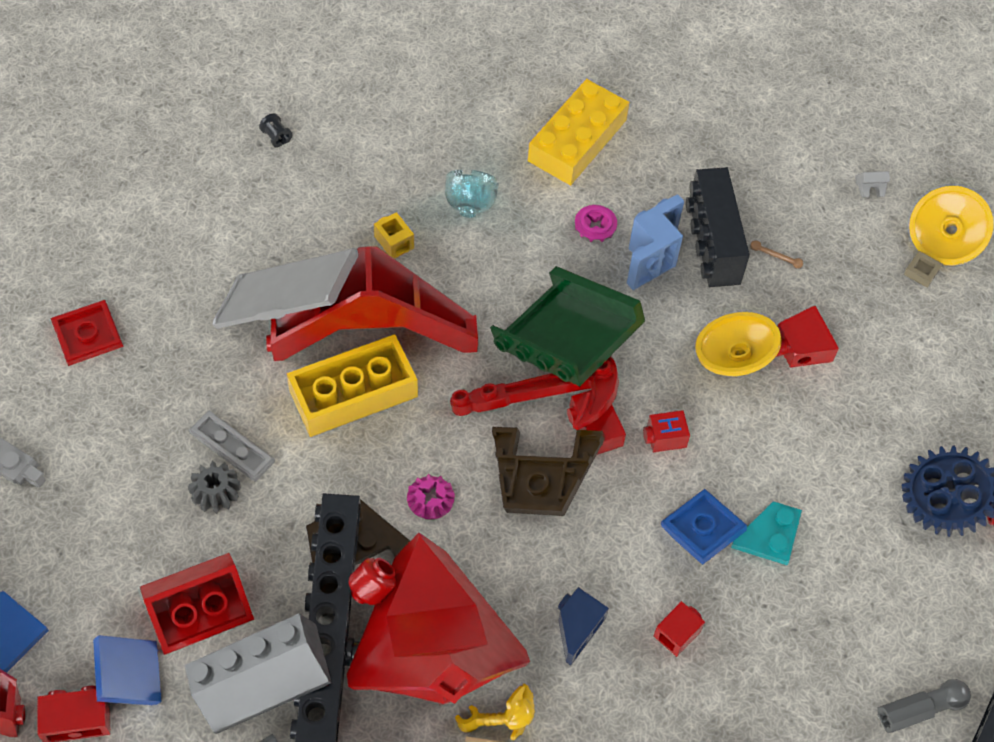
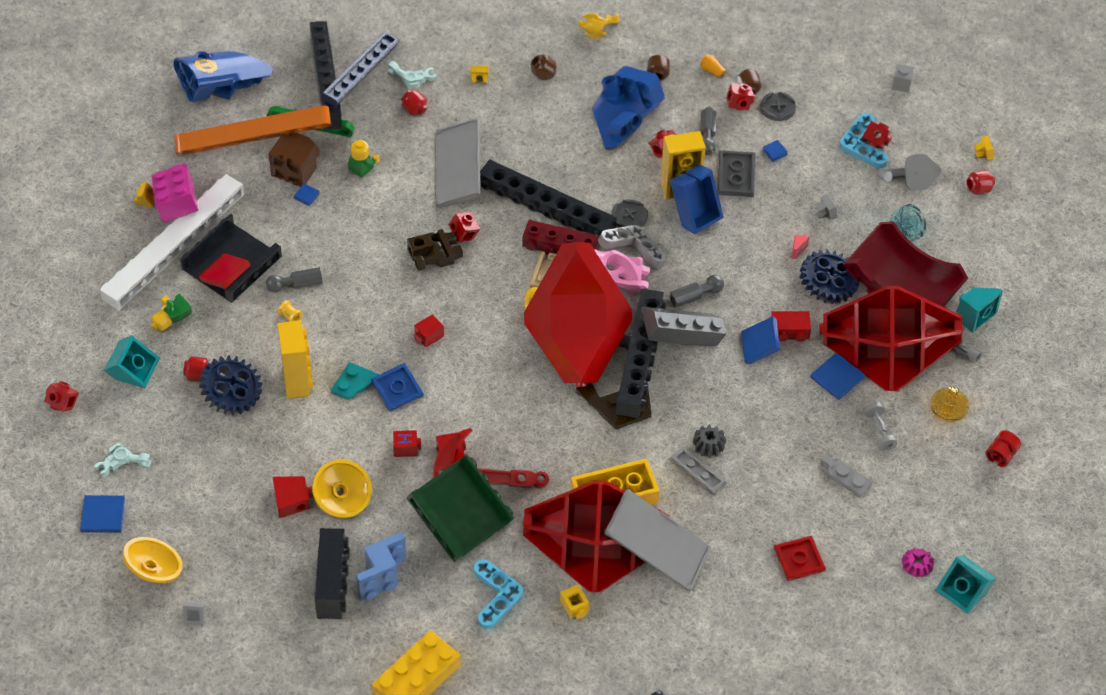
camera: 170 degrees left, 5 degrees down
(196, 603) = (721, 377): red slope -> none
(372, 581) = (613, 356): red head -> none
(435, 507) = (572, 432): dark pink gear -> none
(470, 193) = (511, 625): clear light blue cylinder -> none
(491, 250) = (503, 590): none -> medium azure beam
(542, 483) = (500, 420): dark brown wing -> none
(579, 621) = (487, 340): dark blue slope -> none
(595, 213) = (421, 595): dark pink gear -> none
(797, 263) = (301, 576): medium nougat hinge -> none
(872, 501) = (295, 359): none -> yellow brick
(910, 639) = (289, 312): none -> yellow bush
(923, 269) = (183, 540): dark tan plate -> none

